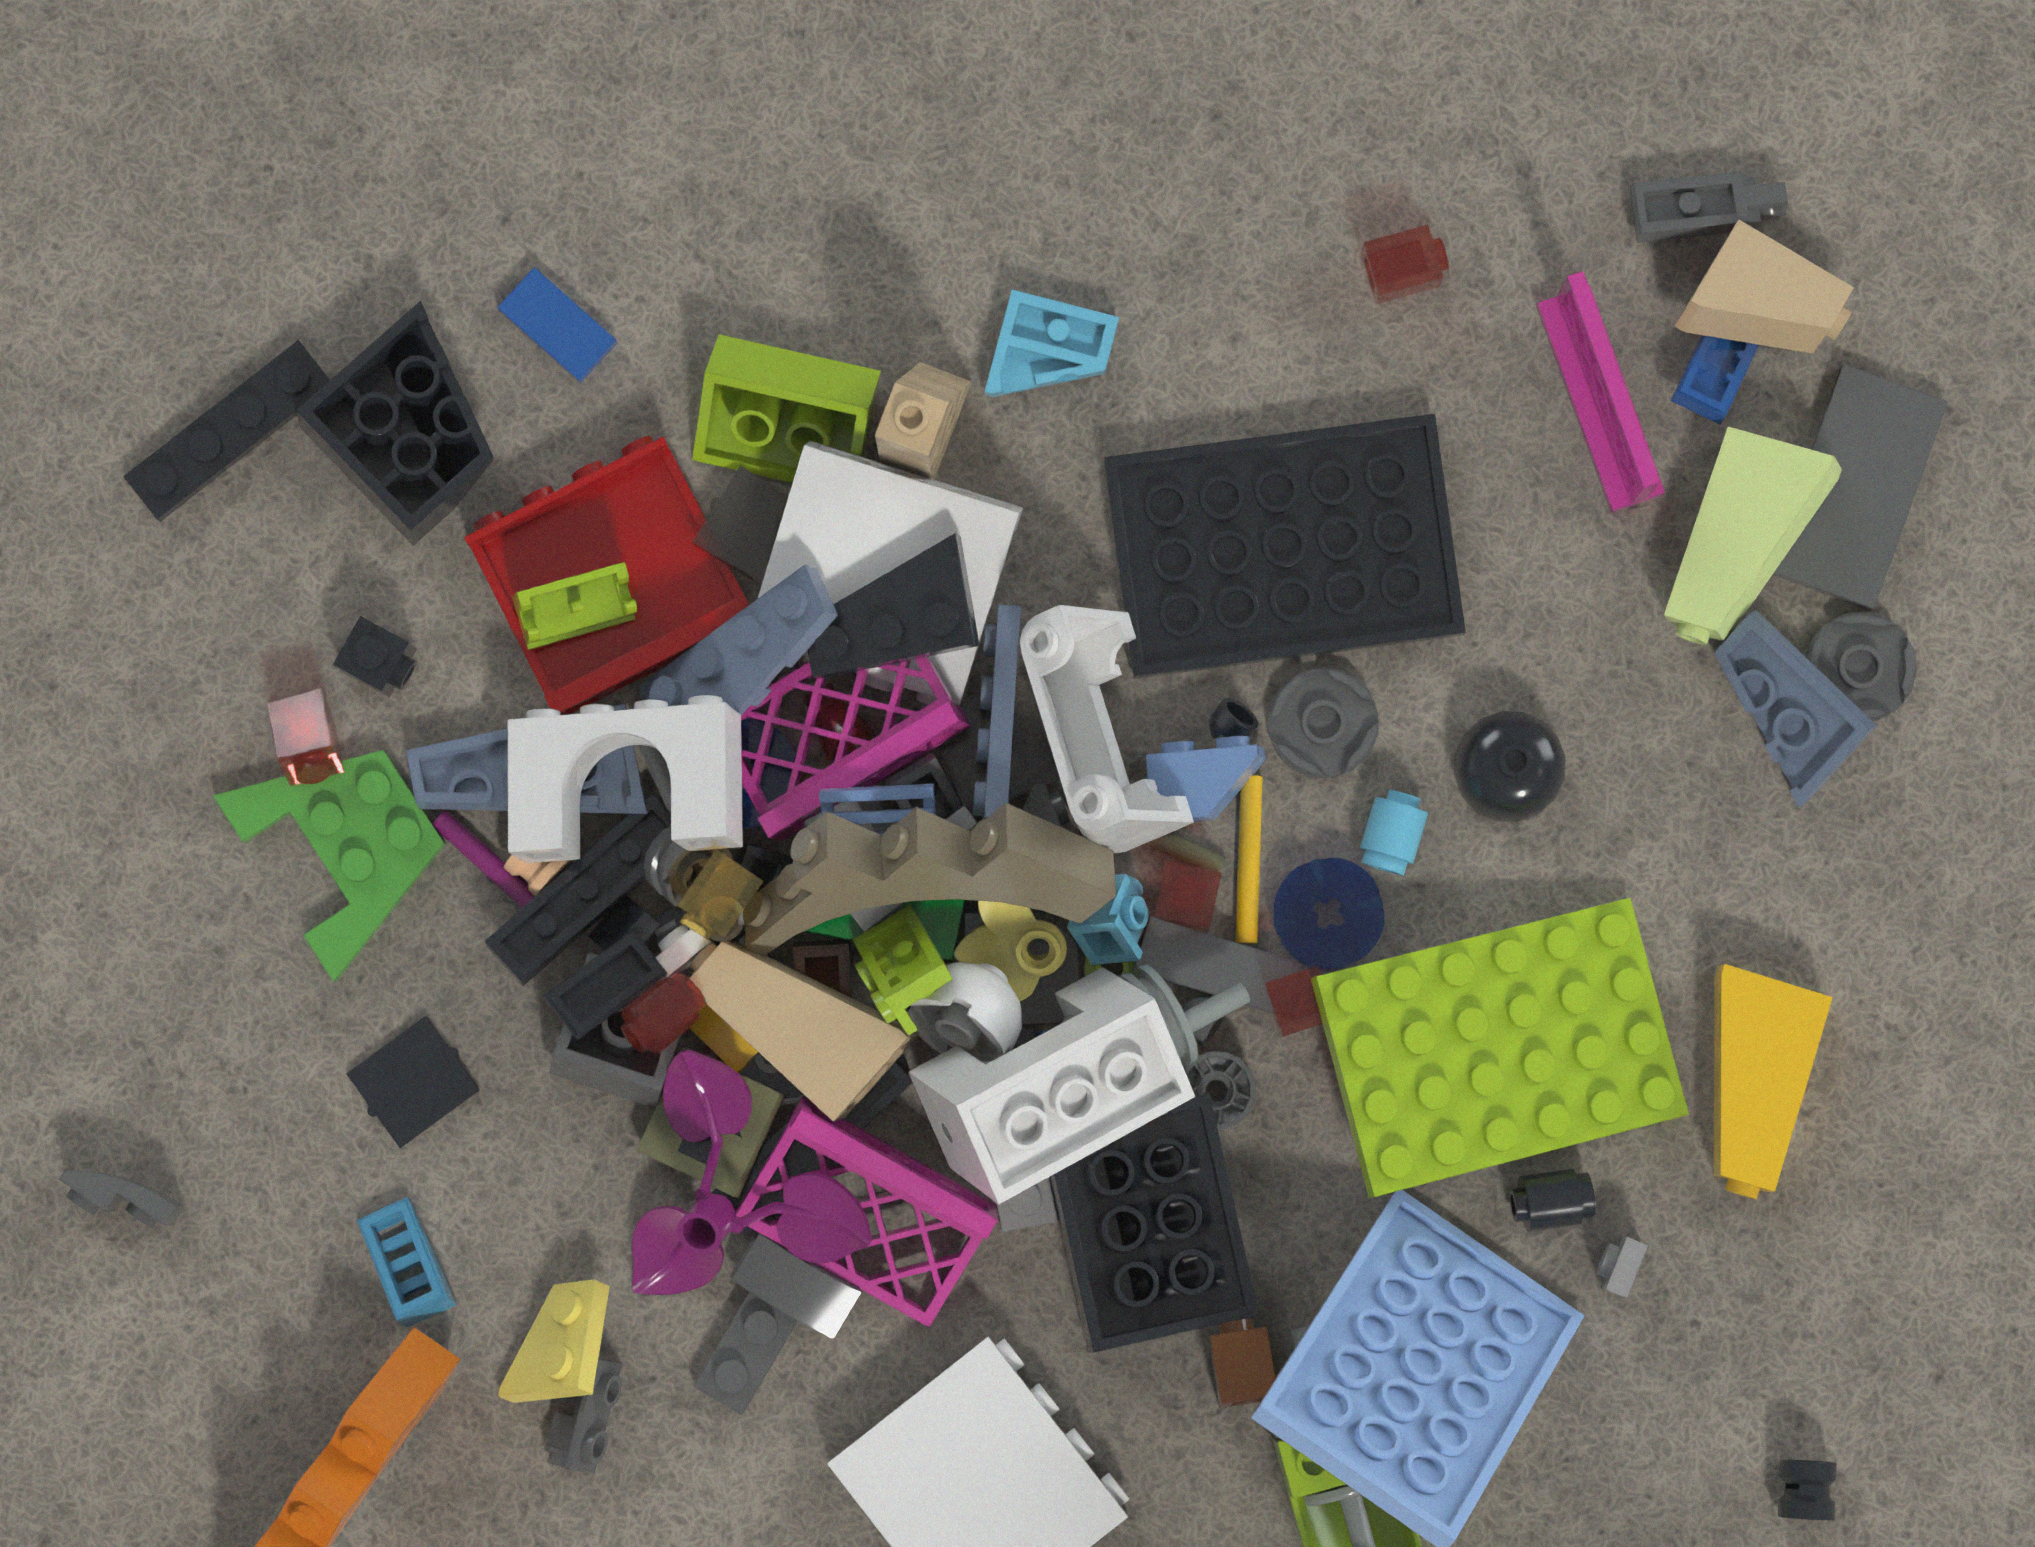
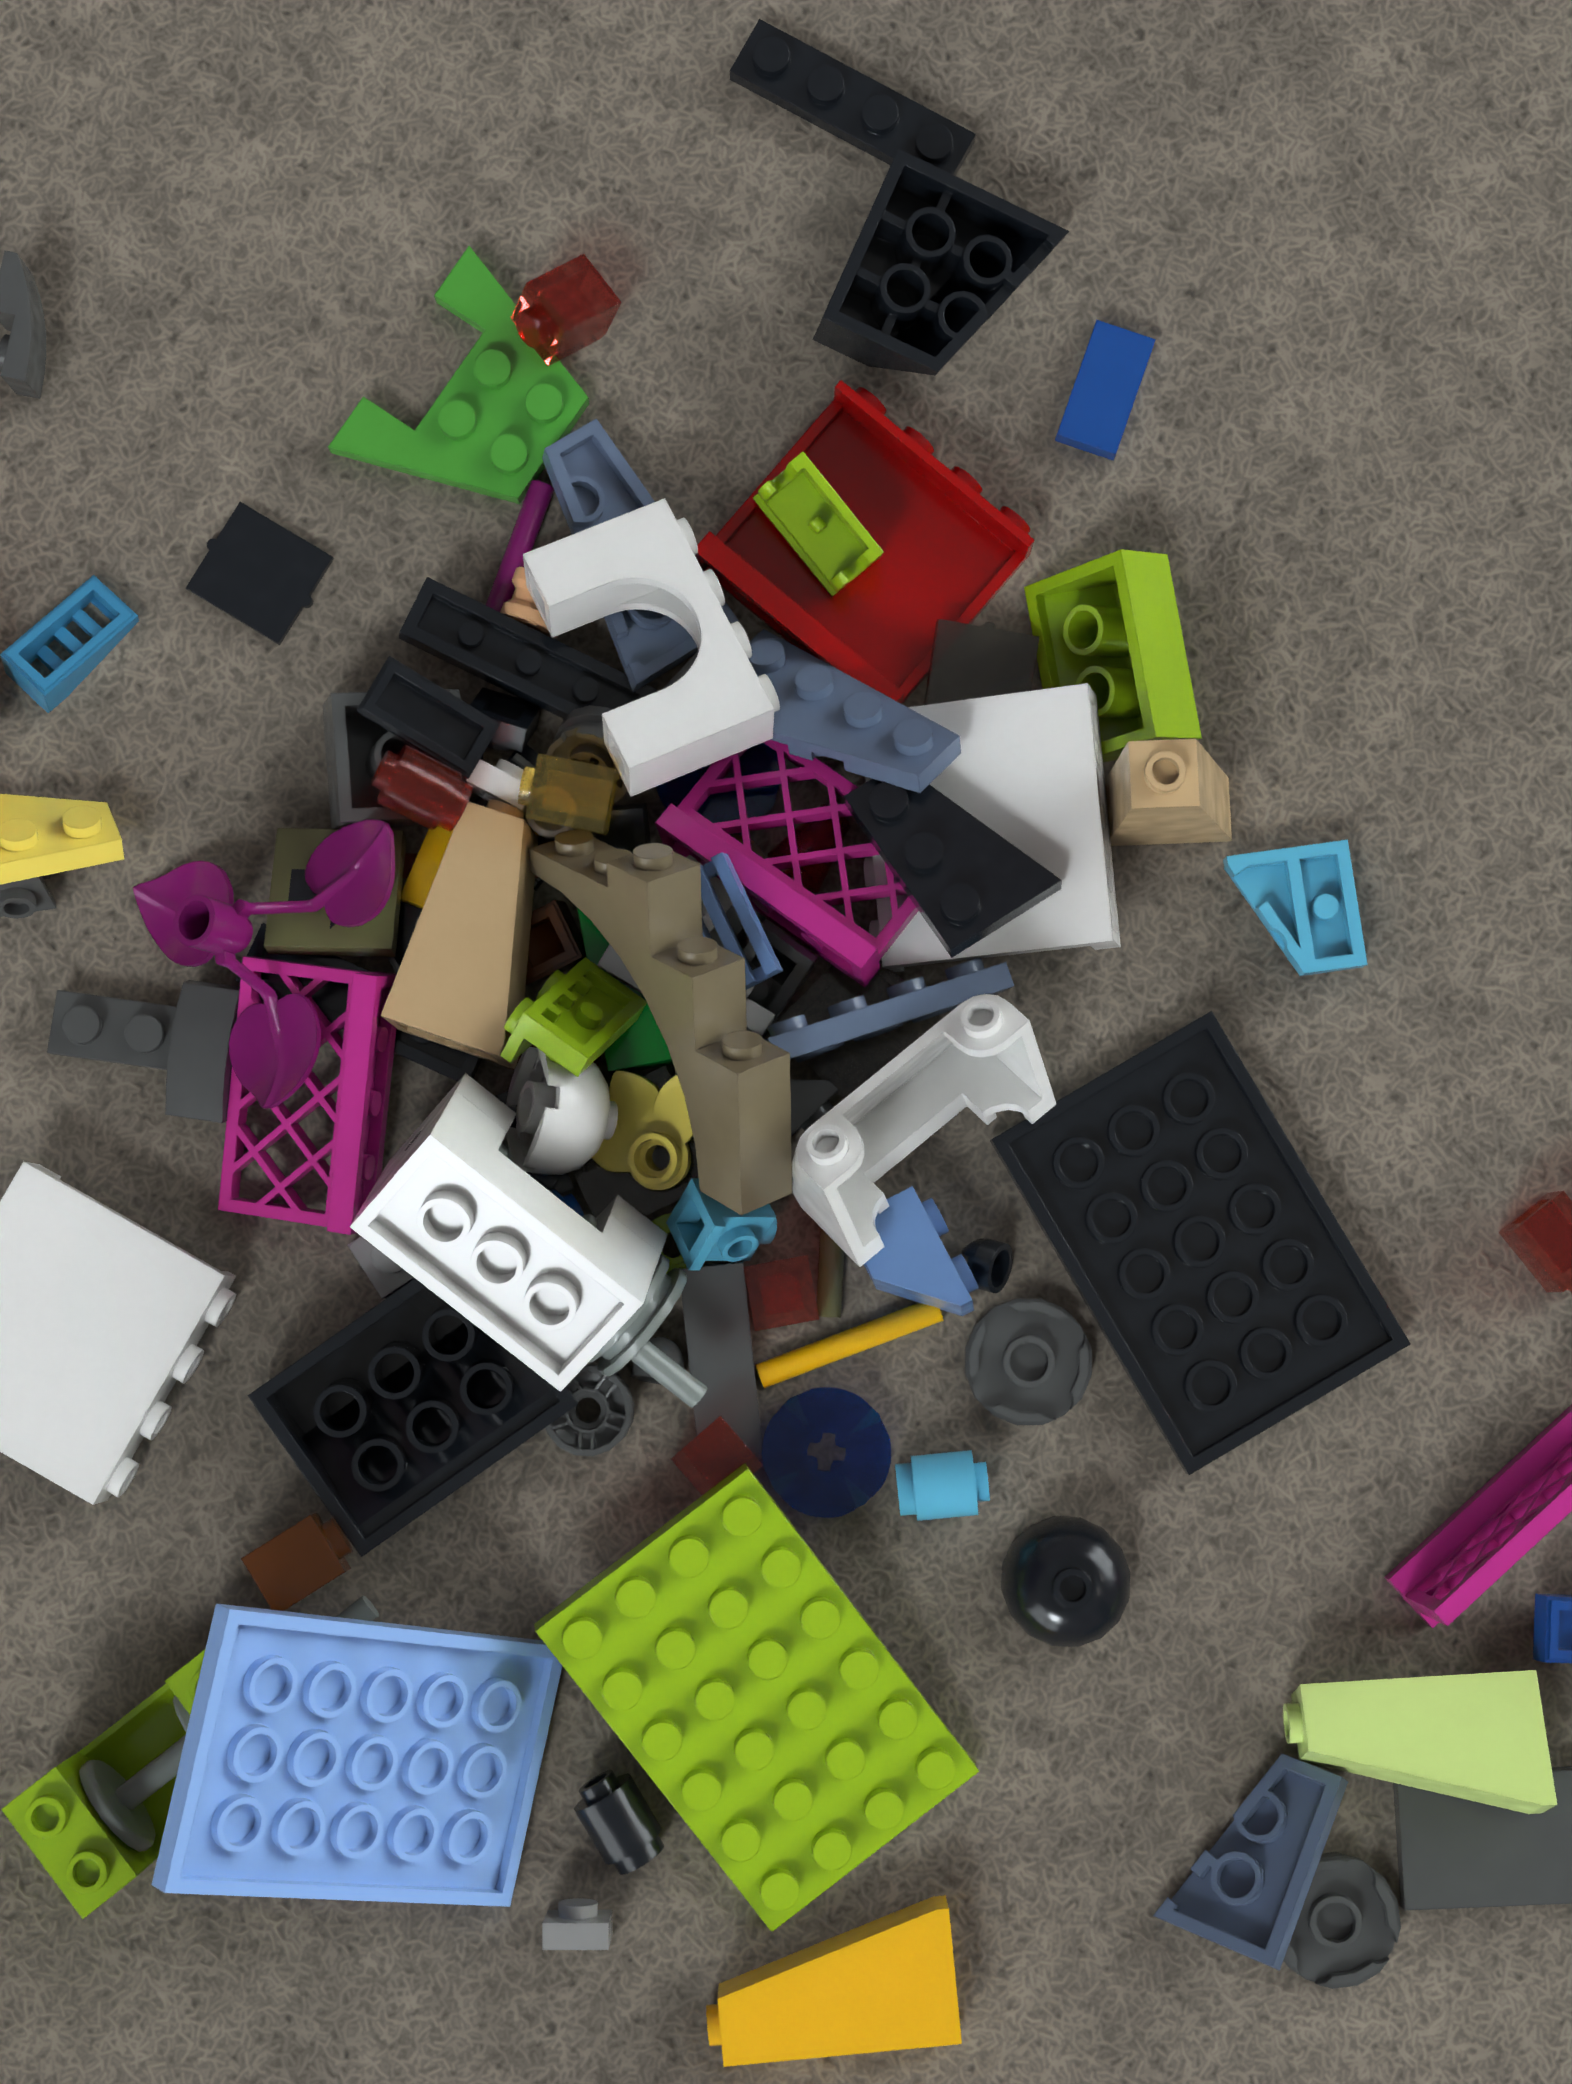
camera: 65 degrees right, 0 degrees up
(376, 658) = (678, 346): black brick -> none

